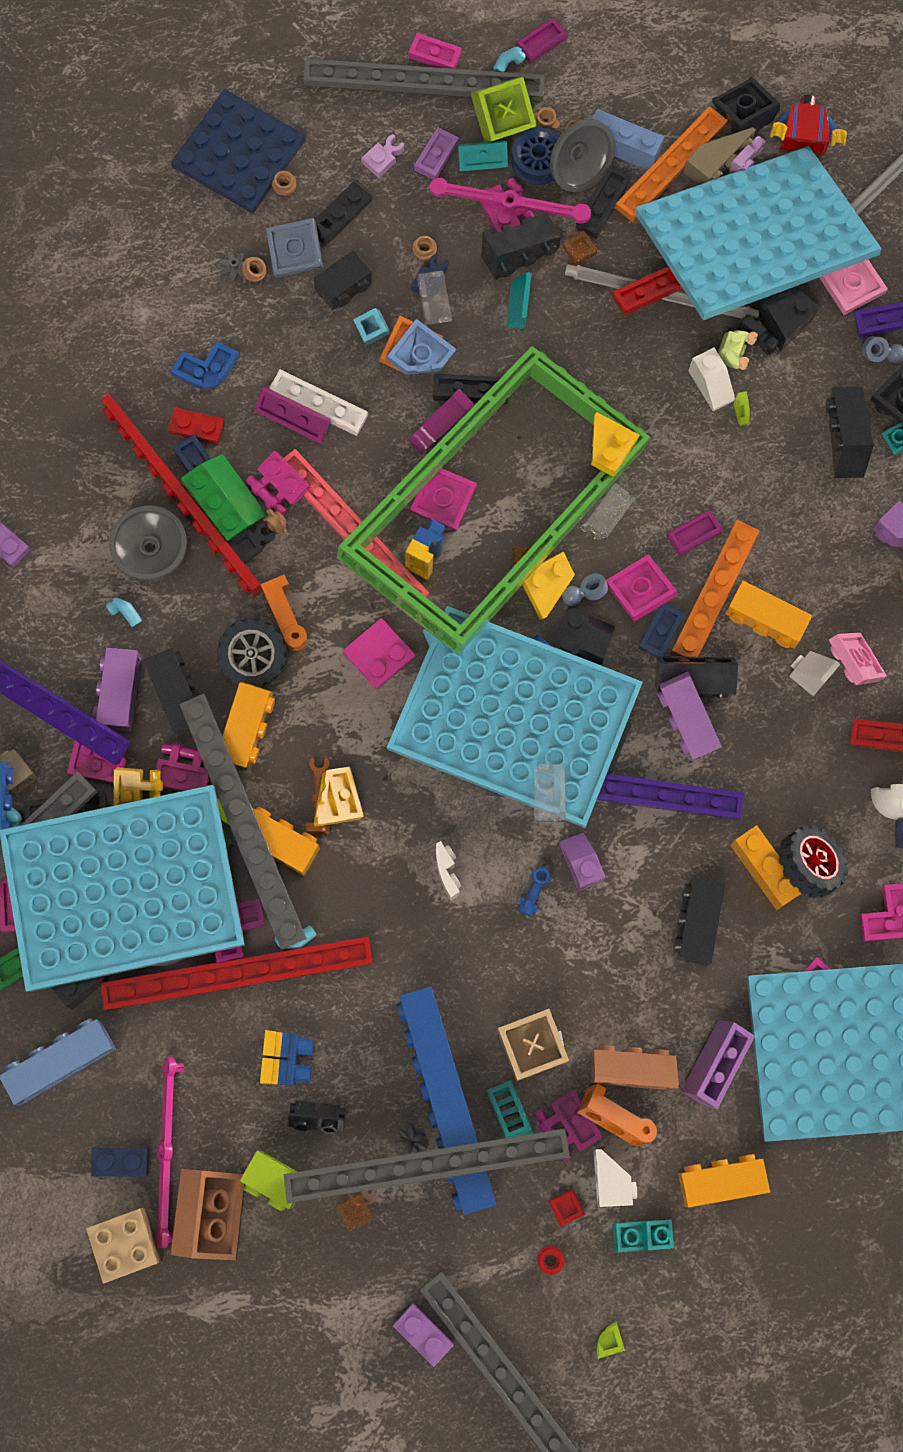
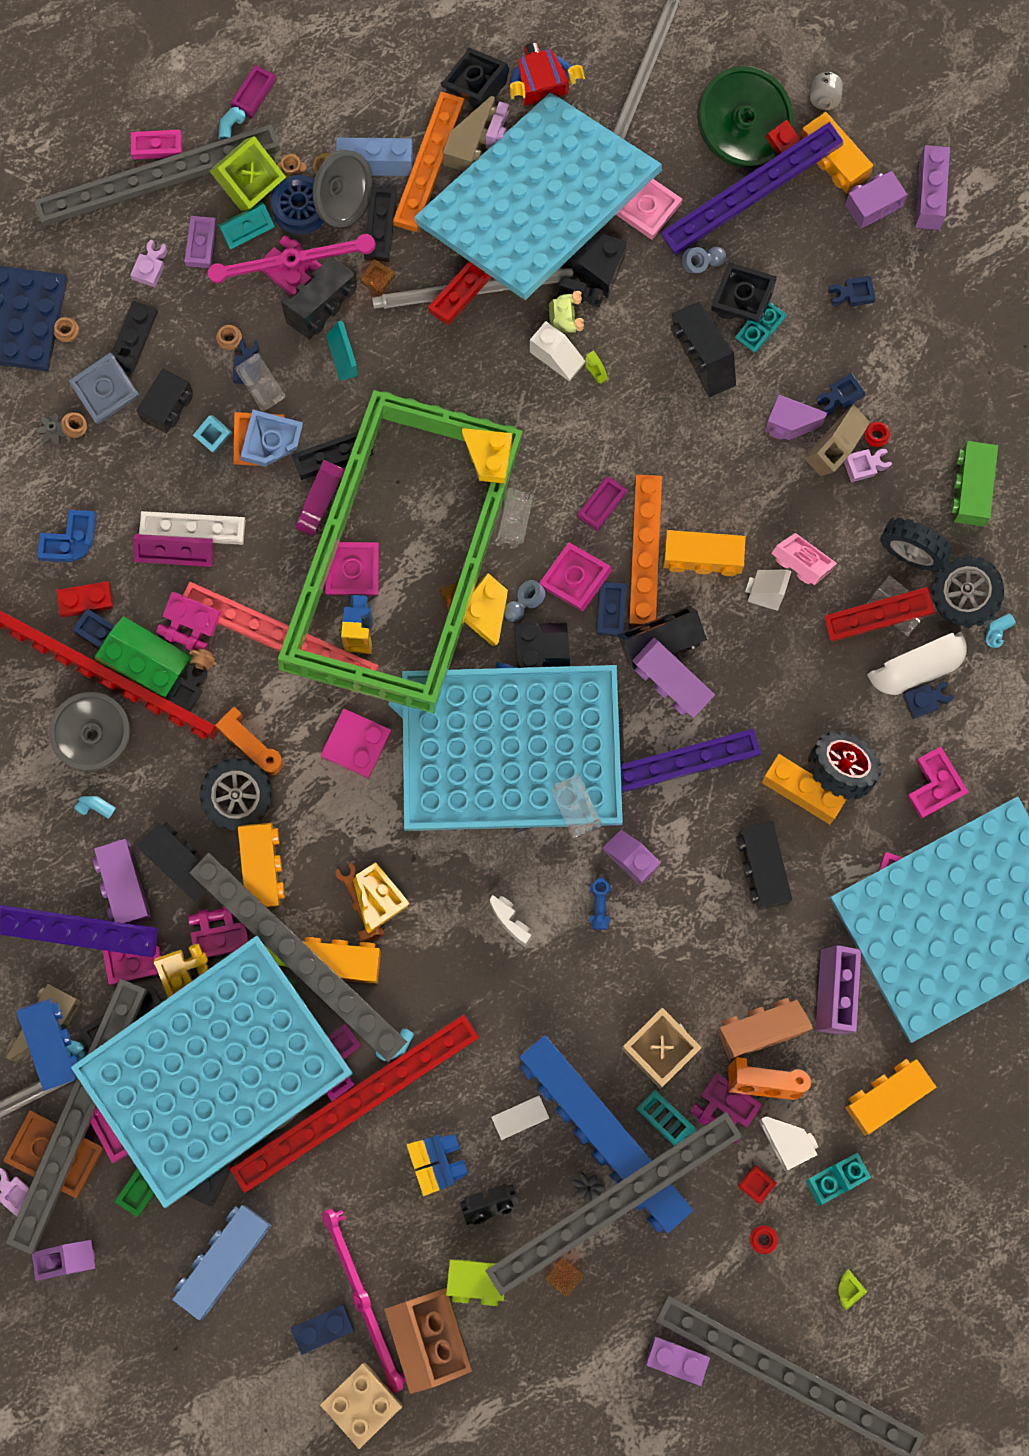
camera: 20 degrees left, 0 degrees up
(379, 1051) = (520, 1117): none -> white sticker

